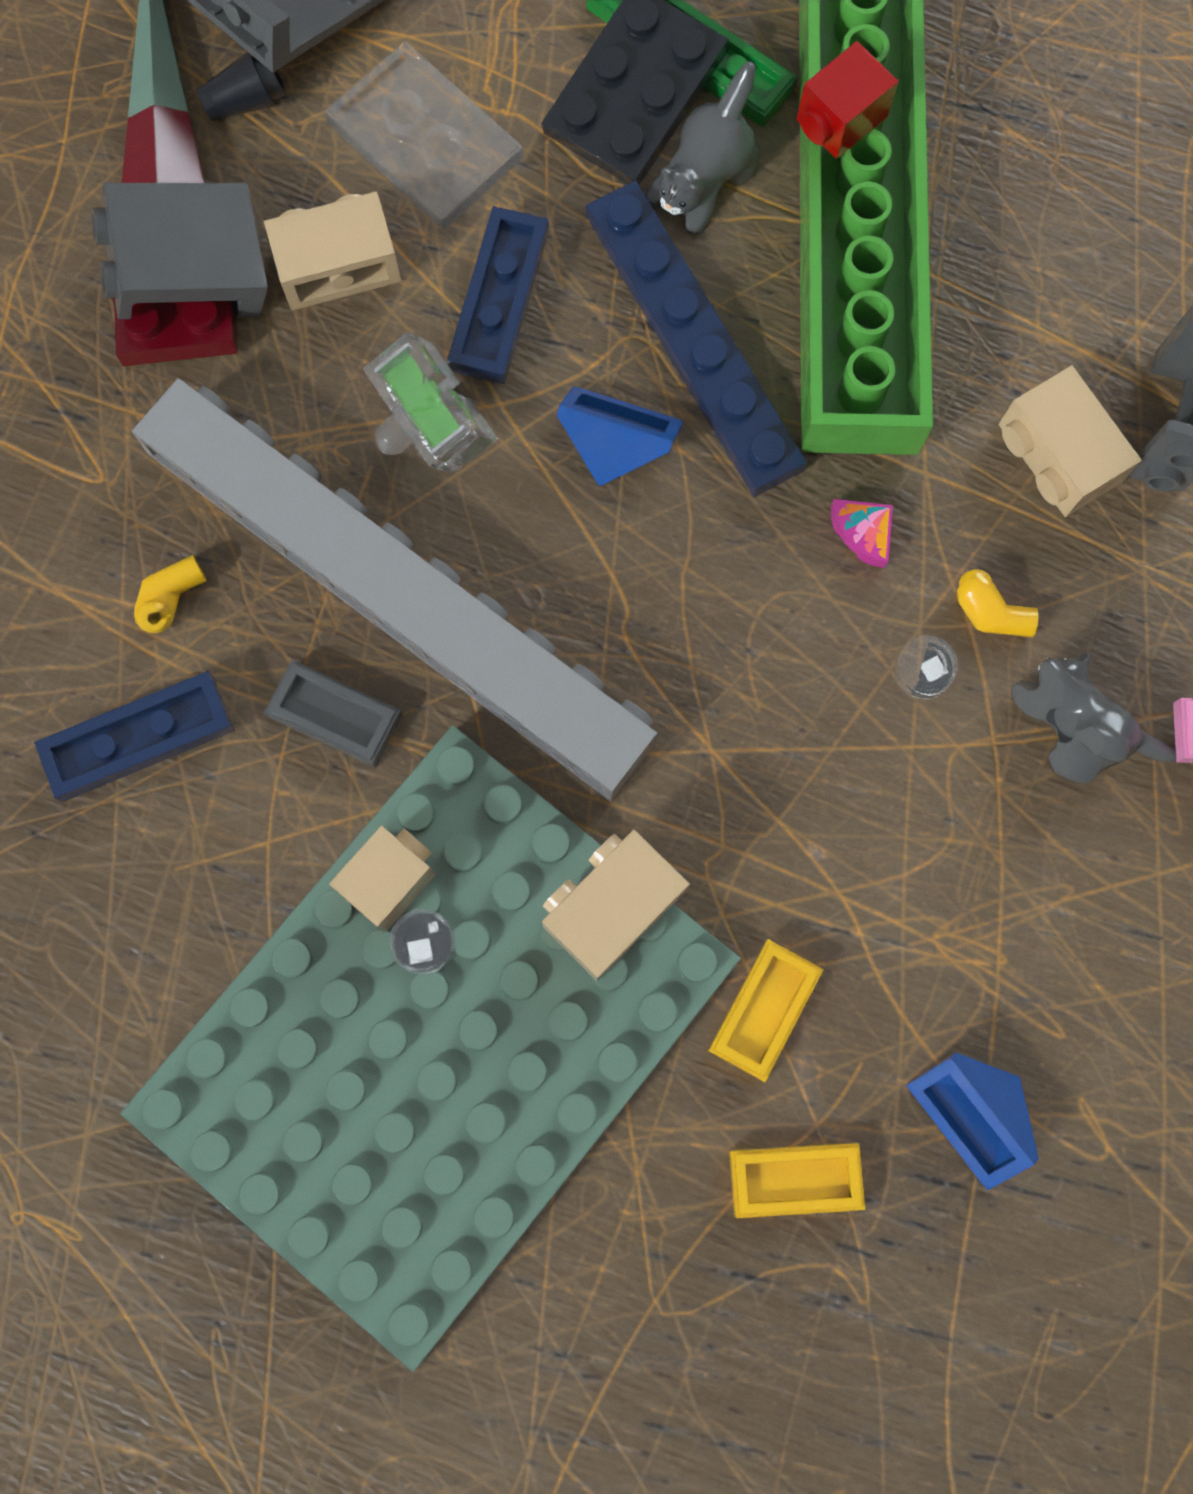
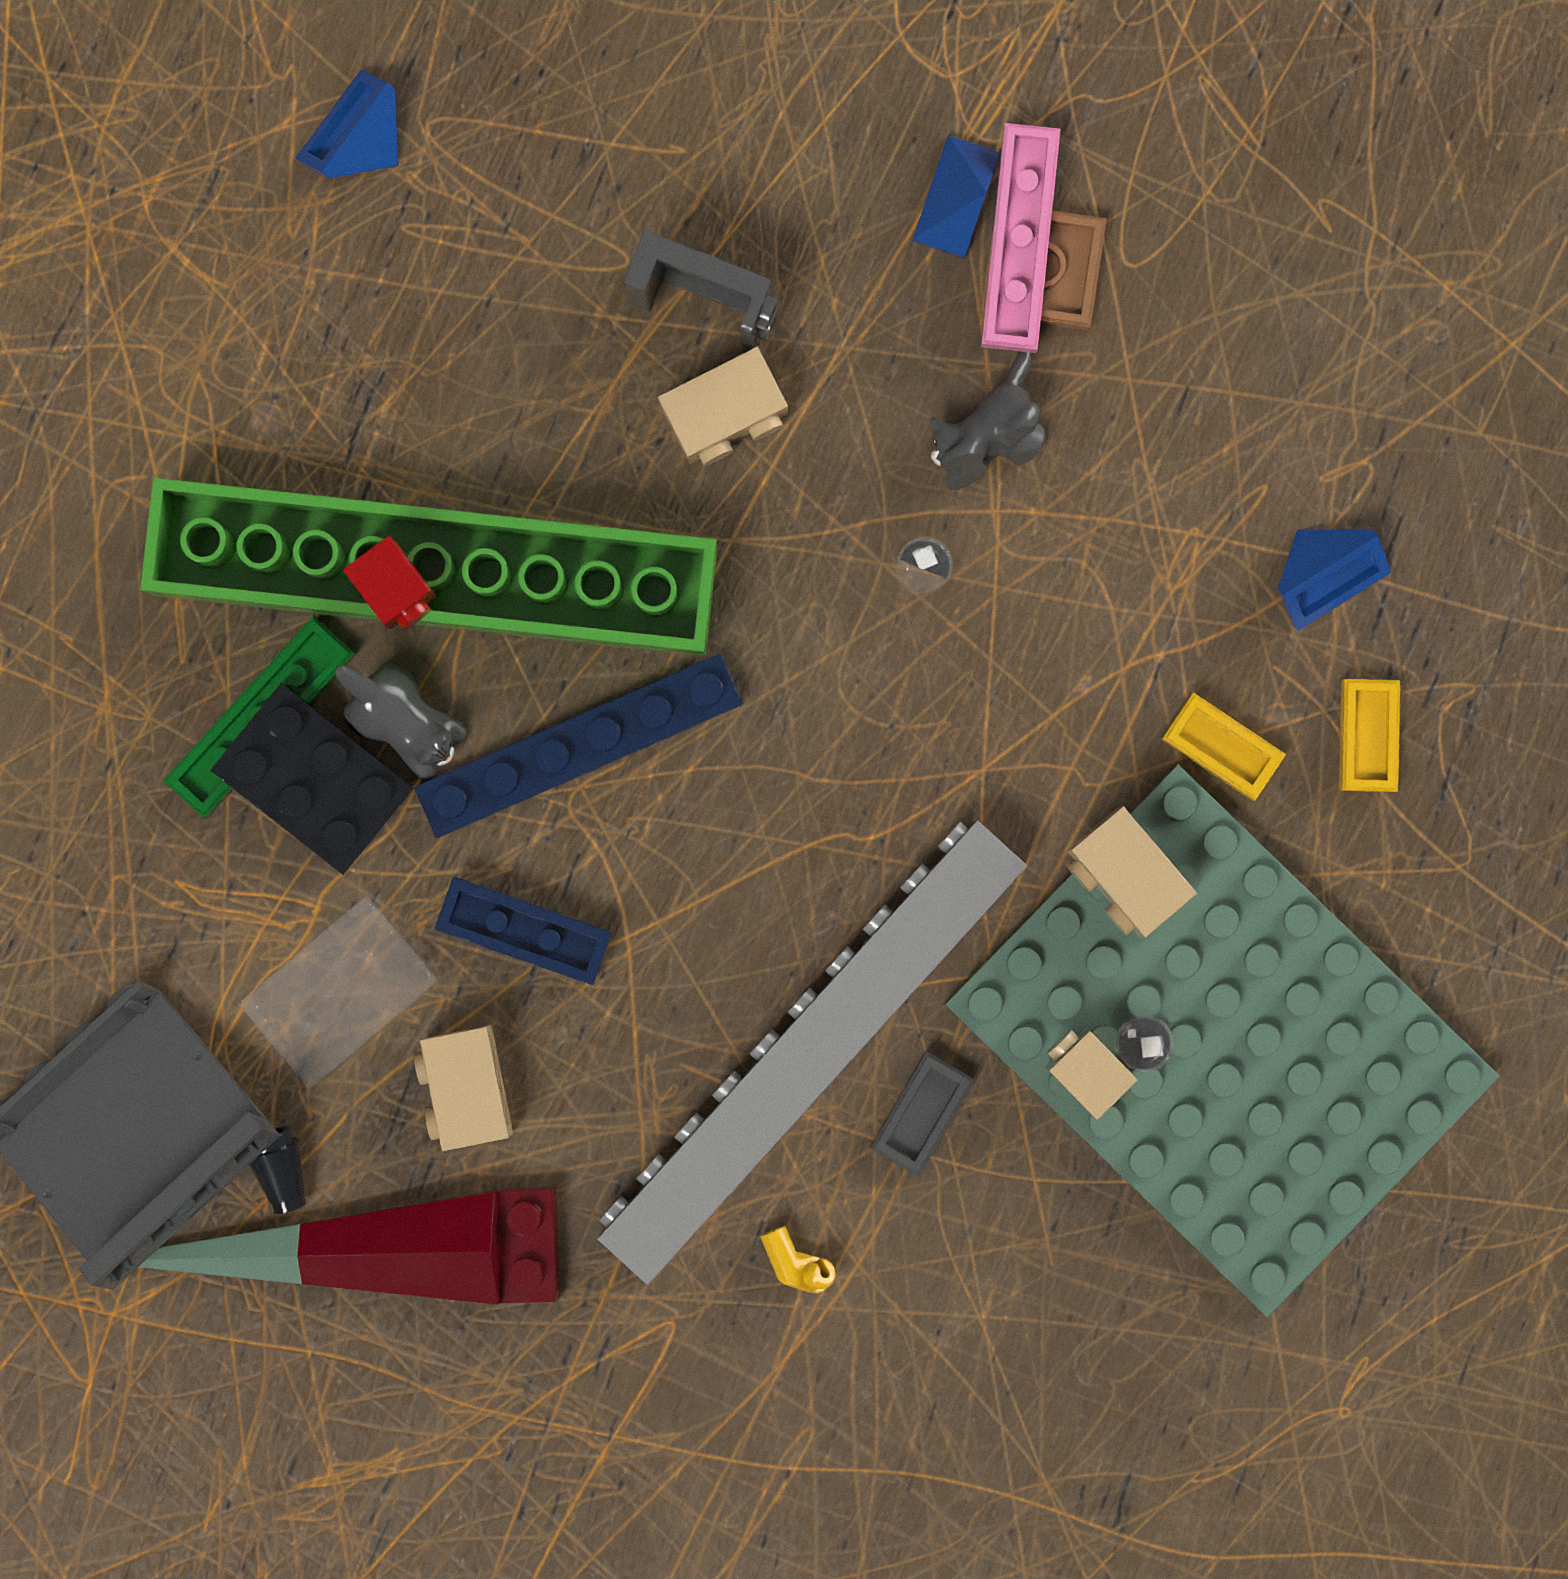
camera: 85 degrees left, 10 degrees up
(134, 736) = (931, 1294): dark blue plate -> none
(179, 245) = (462, 1233): dark grey panel -> none
(424, 408) = (642, 1006): clear piece -> none
(615, 434) = (672, 829): blue slope -> none
(864, 529) = (788, 606): tile -> none
(988, 609) = (876, 502): yellow arm -> none

